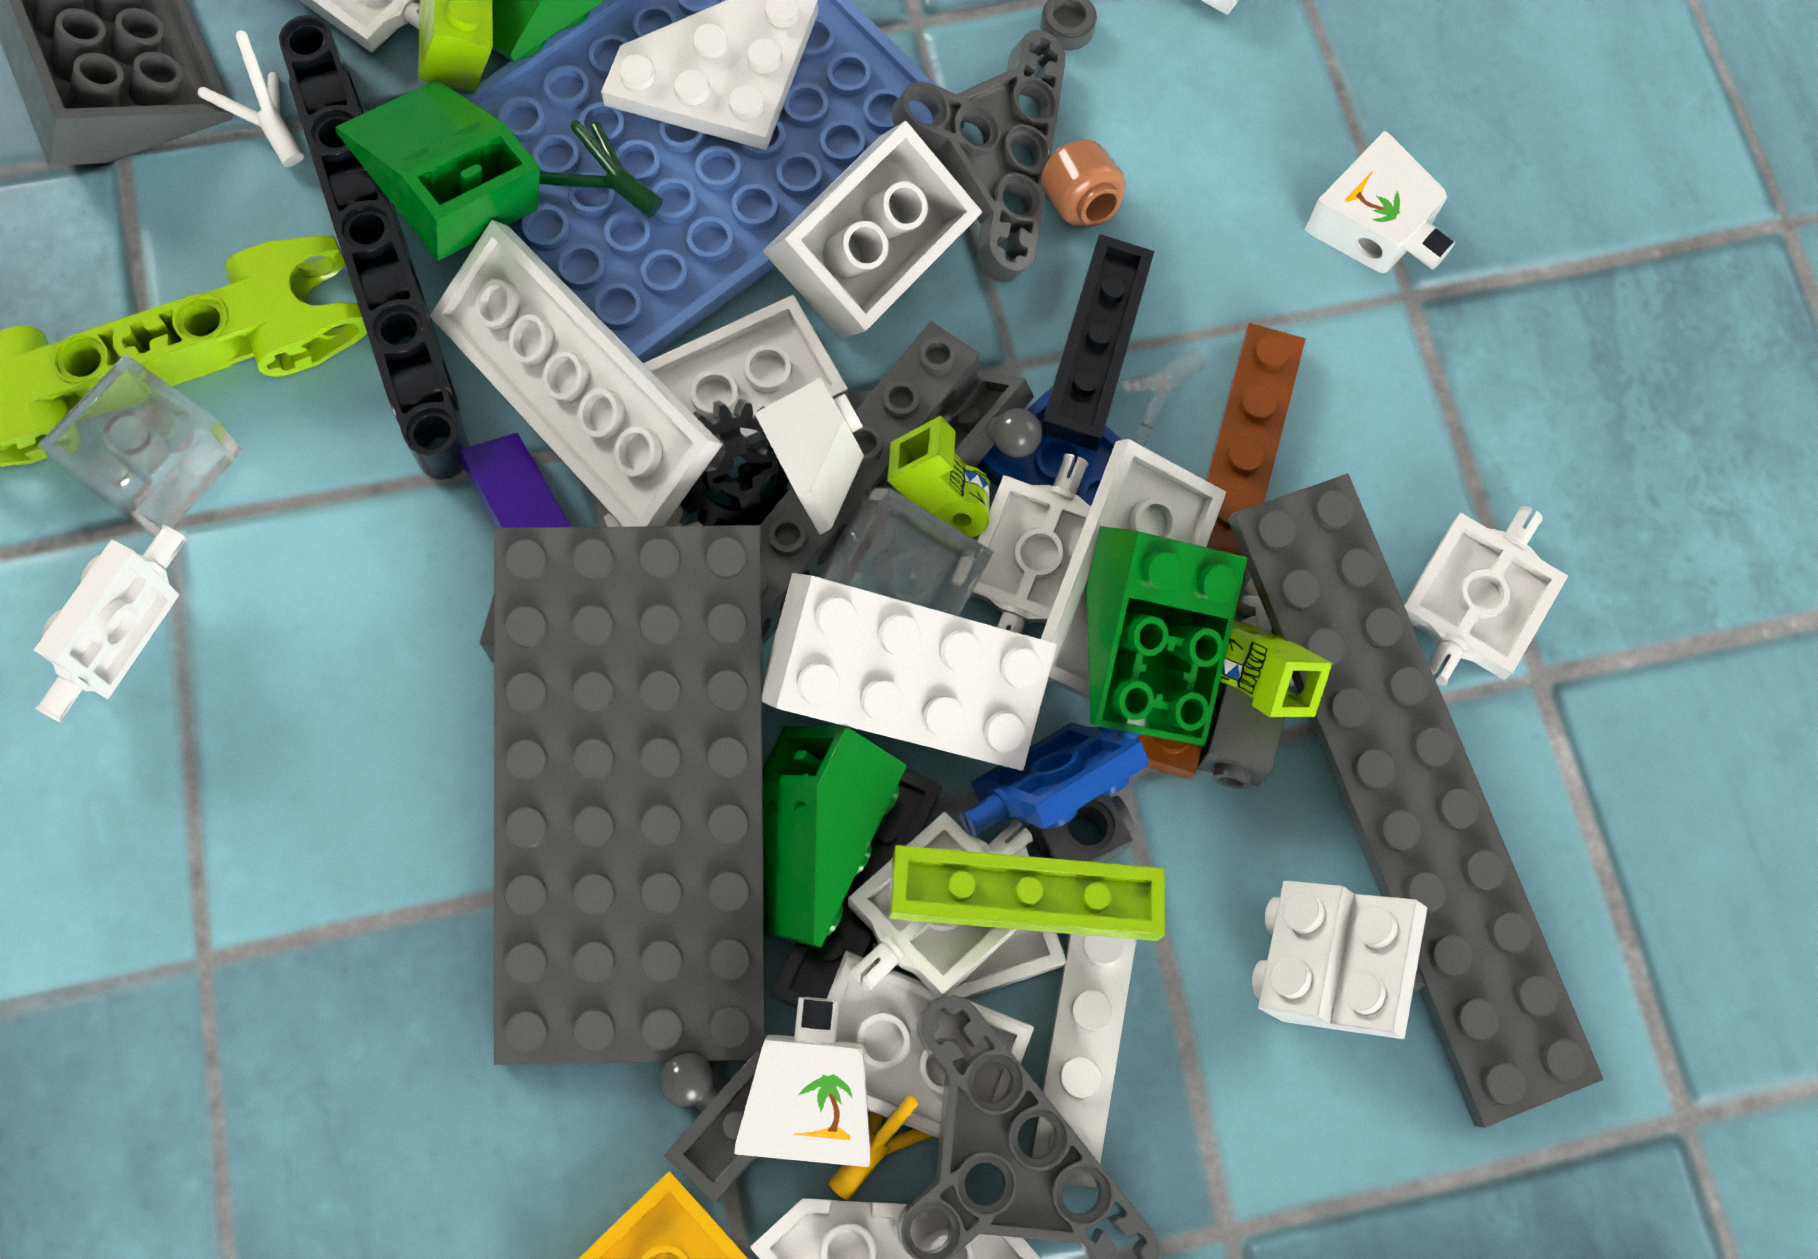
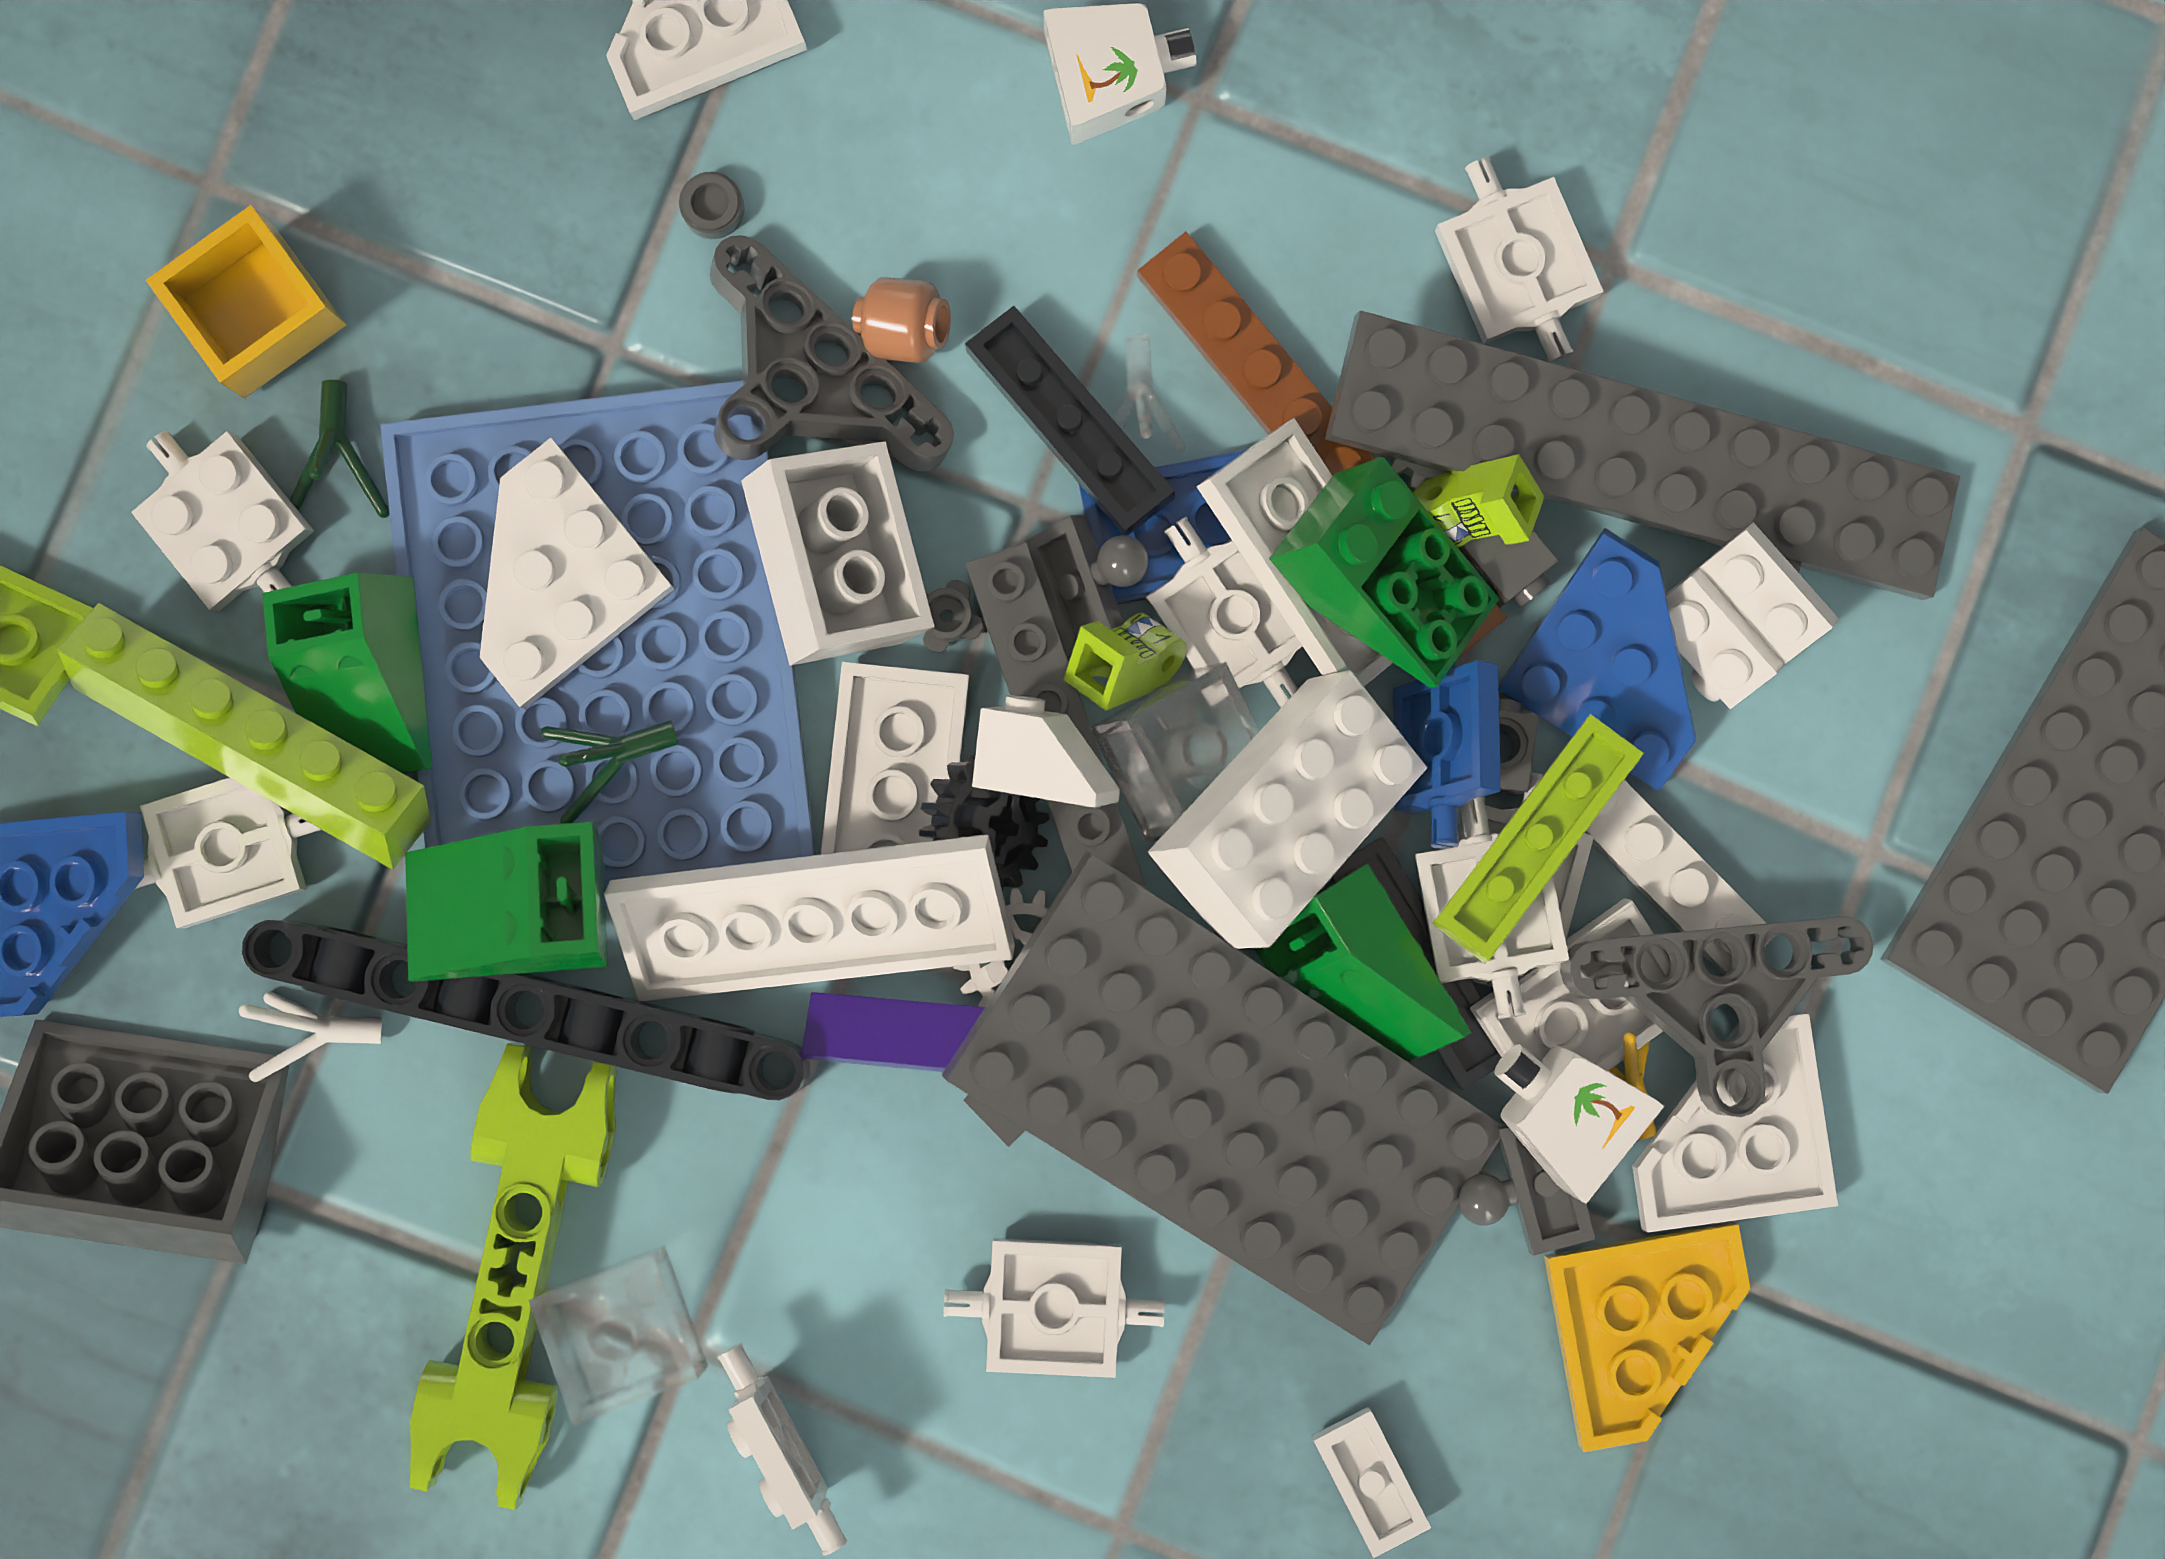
camera: 55 degrees left, 15 degrees up
(367, 776) = (1054, 1307): none -> white plate
(368, 1147) = (1371, 1482): none -> white plate
(877, 338) = (964, 621): none -> dark grey plate
(1227, 876) = (1610, 655): none -> blue plate

